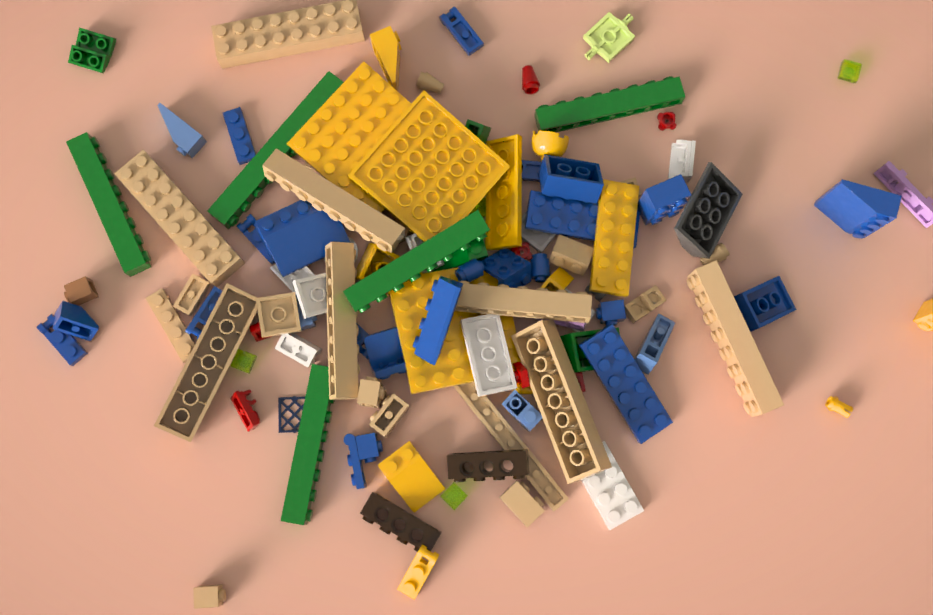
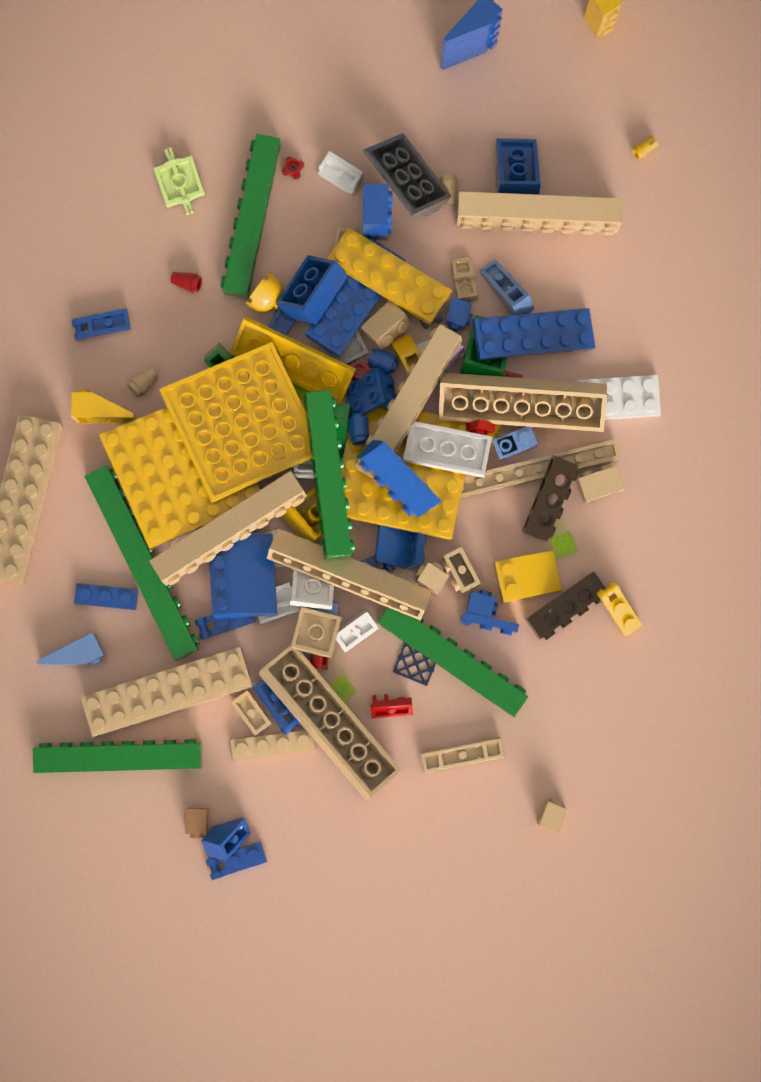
camera: 70 degrees left, 5 degrees up
(230, 491) = (462, 755): none -> tan plate

